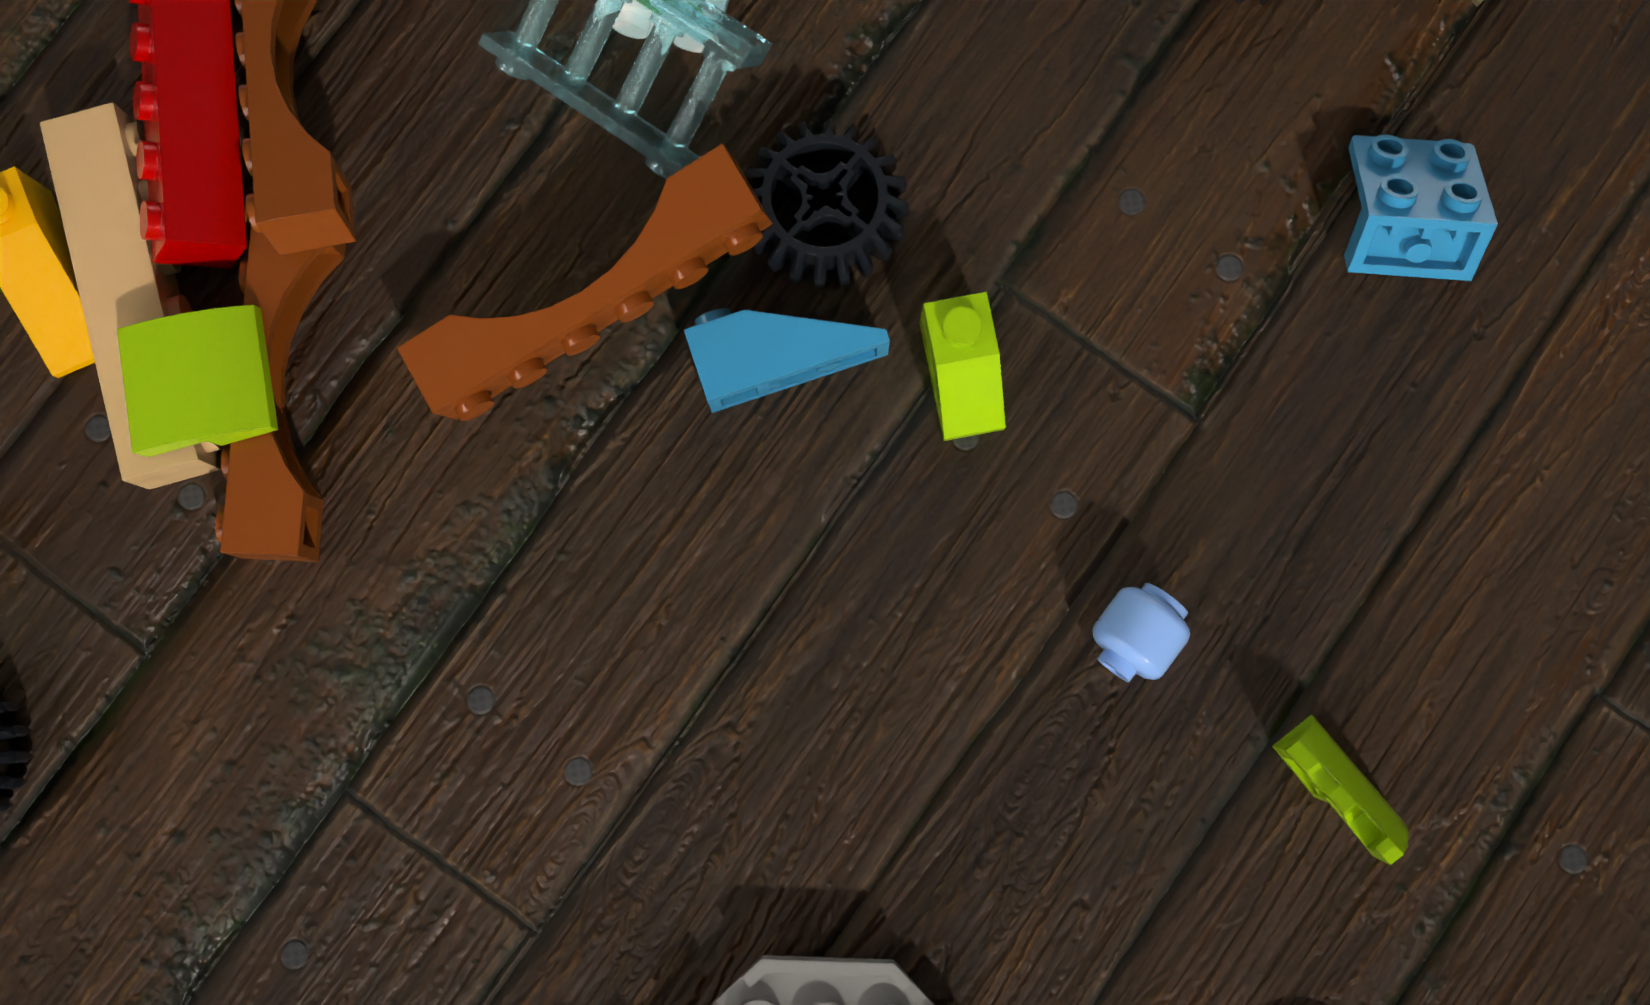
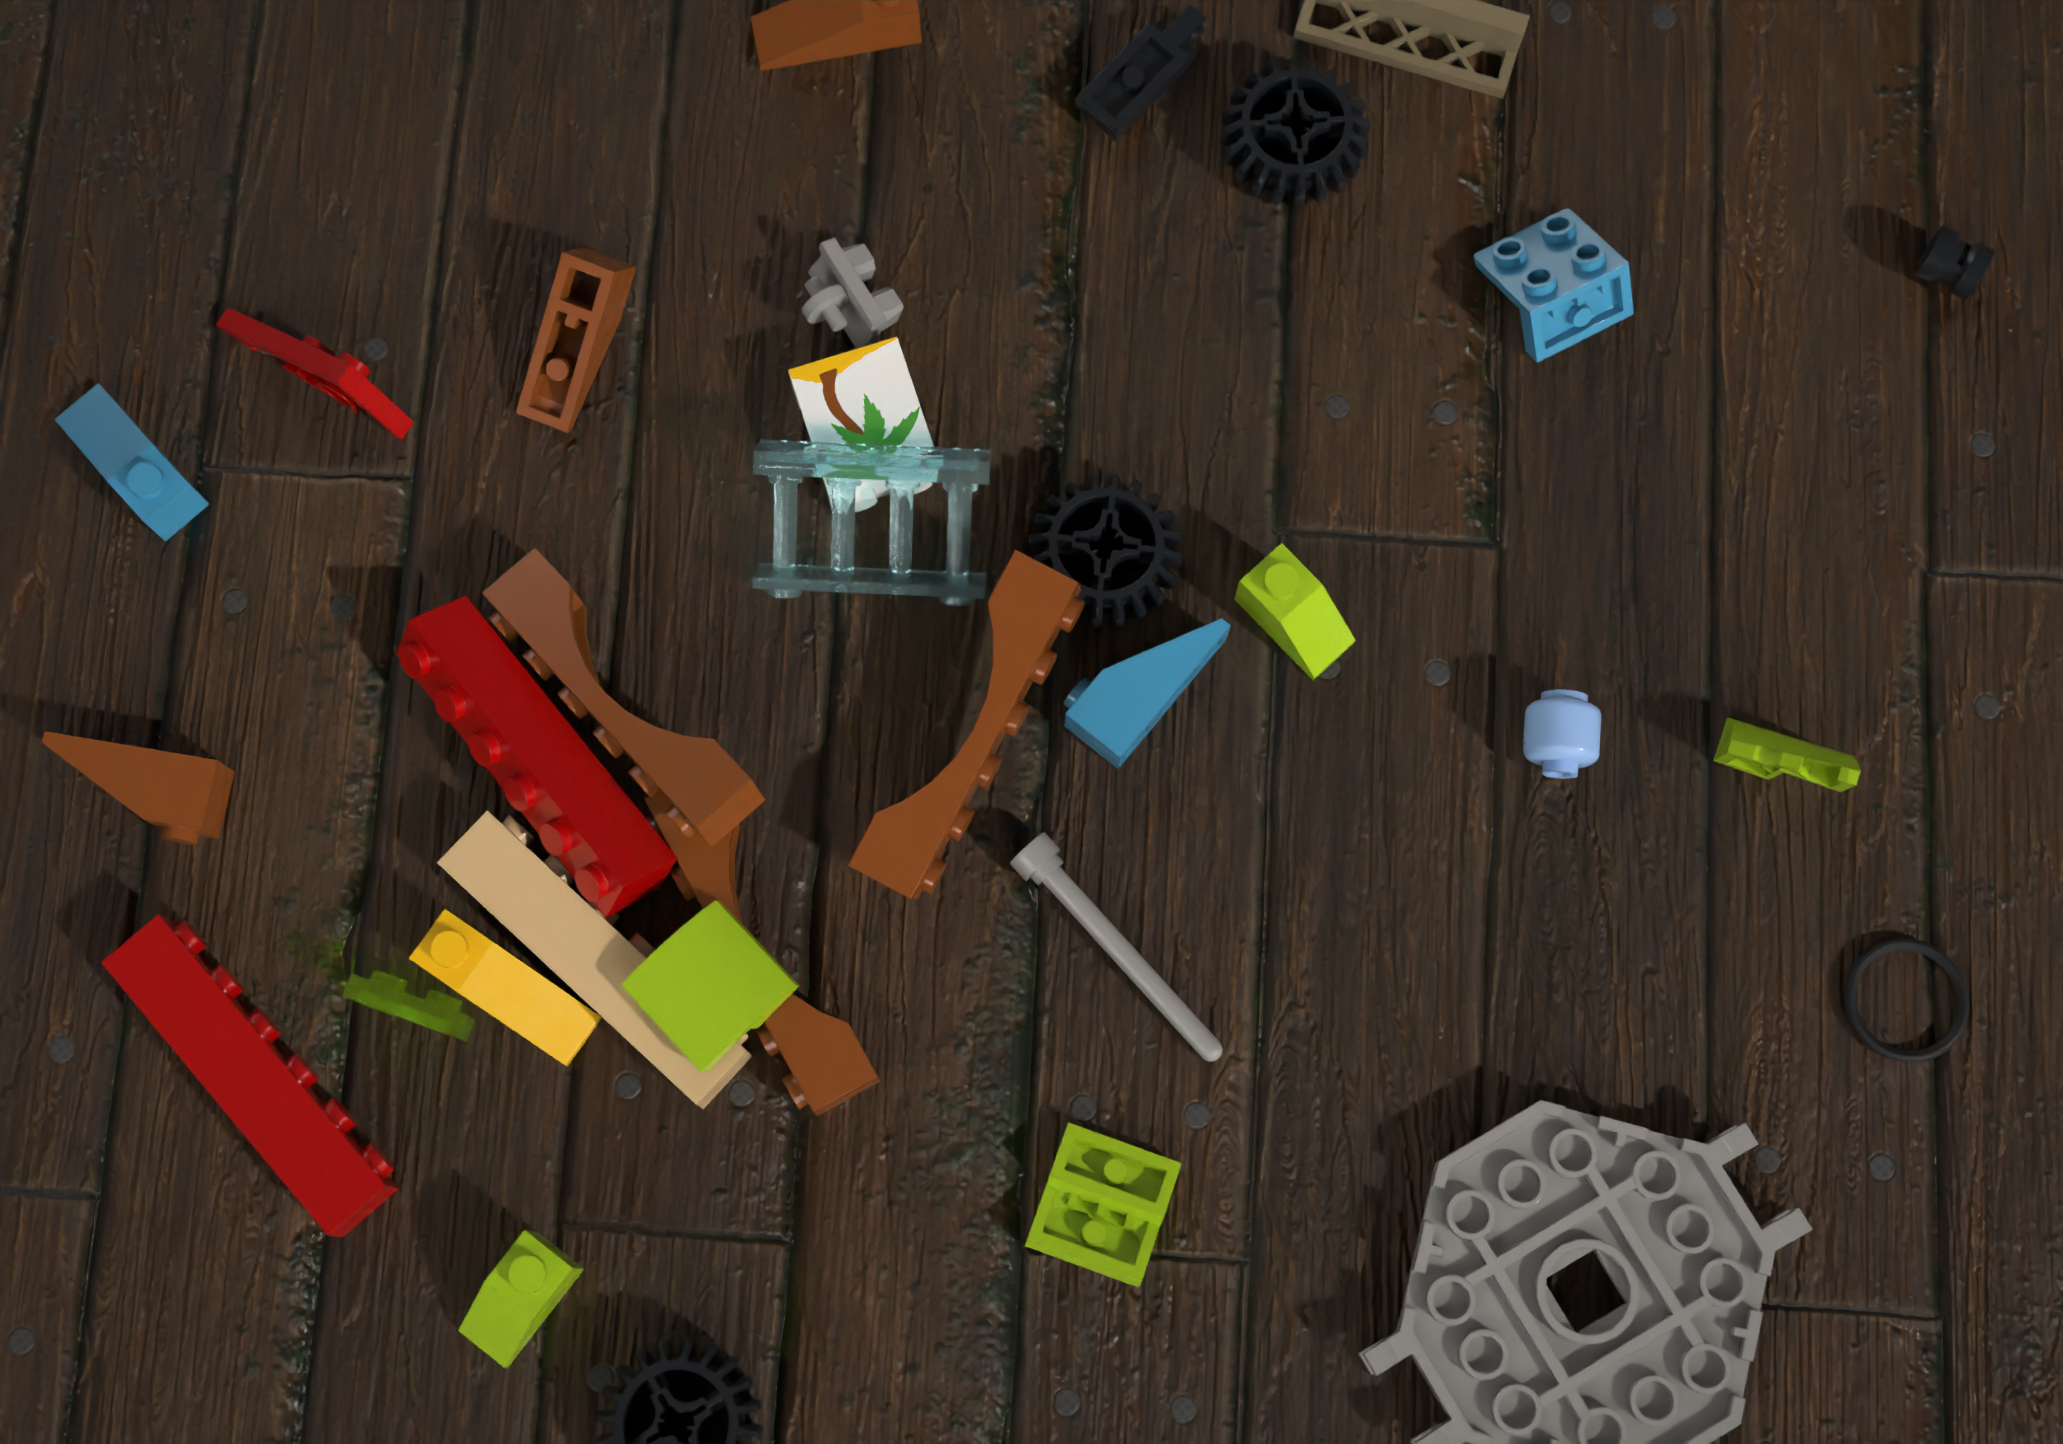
camera: 35 degrees left, 5 degrees down
(437, 799) = (1103, 1205): none -> lime slope
(582, 456) = (1042, 865): none -> light grey piece

